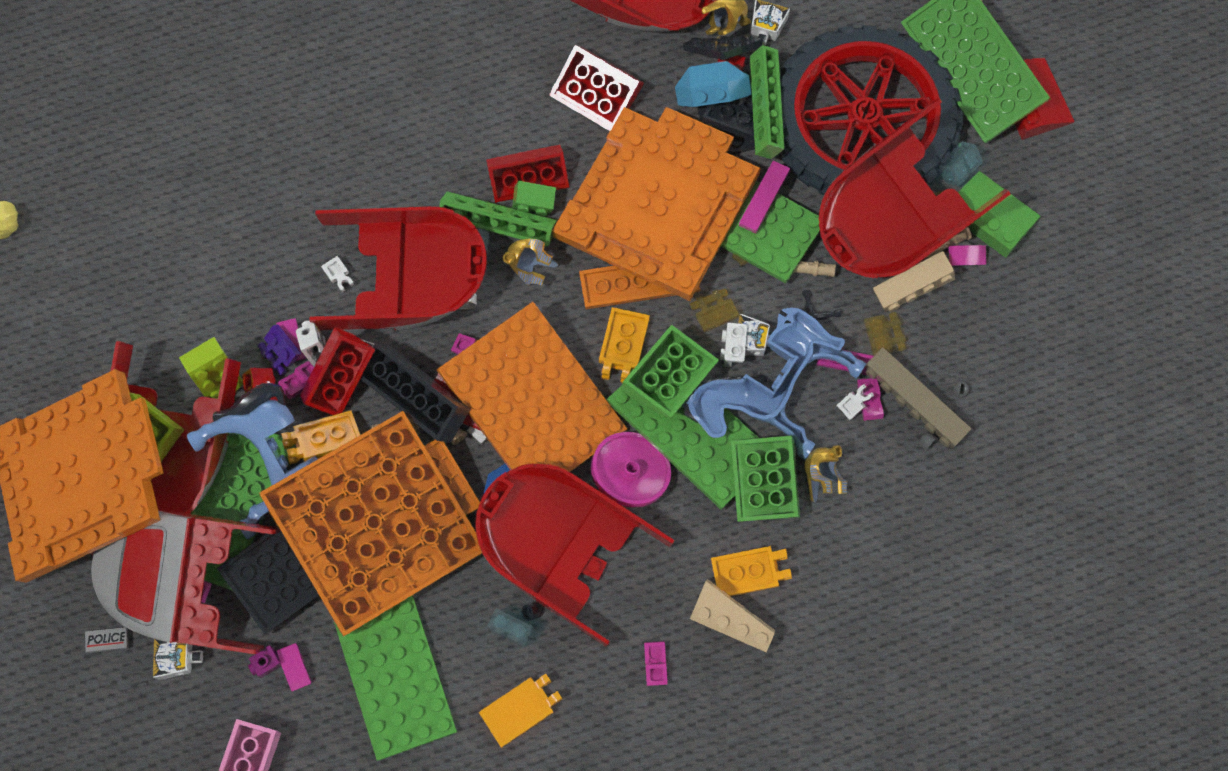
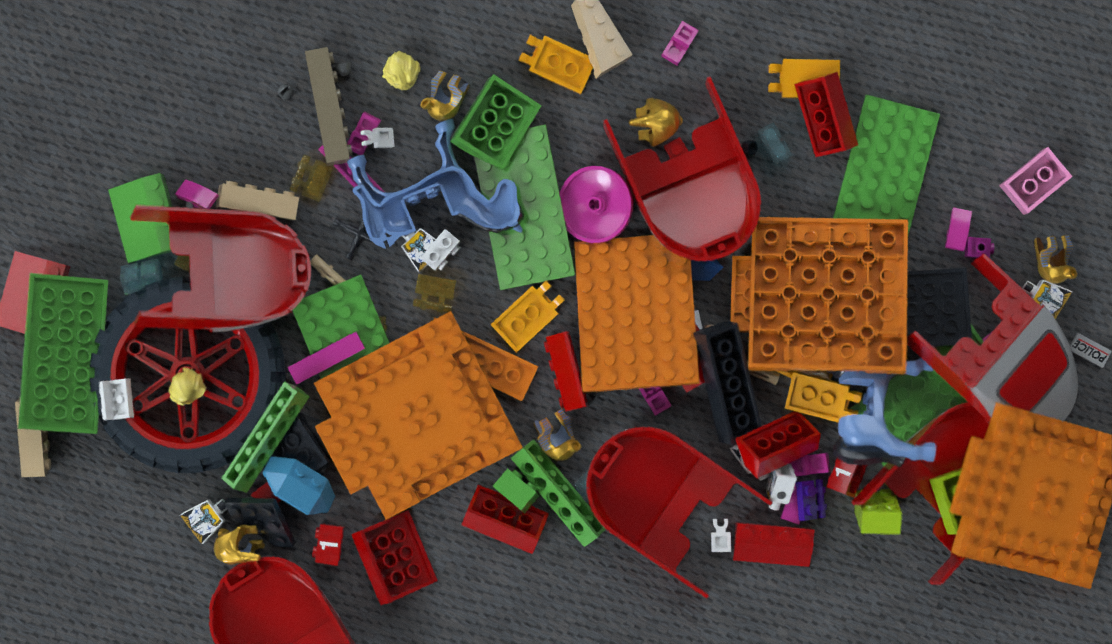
camera: 145 degrees left, 15 degrees up
(186, 690) = (1054, 268): none -> pearl gold piece
(289, 297) = (773, 544): none -> red slope
(480, 686) = (826, 114): none -> red slope
(564, 322) = (567, 371): none -> red slope
(623, 577) = (658, 116): none -> pearl gold piece
(655, 64) = (329, 544): none -> red brick
(669, 373) = (512, 256): bright green slope -> none
(859, 94) = (186, 387): none -> light yellow hair
(878, 470) = (401, 70): none -> light yellow hair
(906, 50) = (116, 399): none -> white bracket

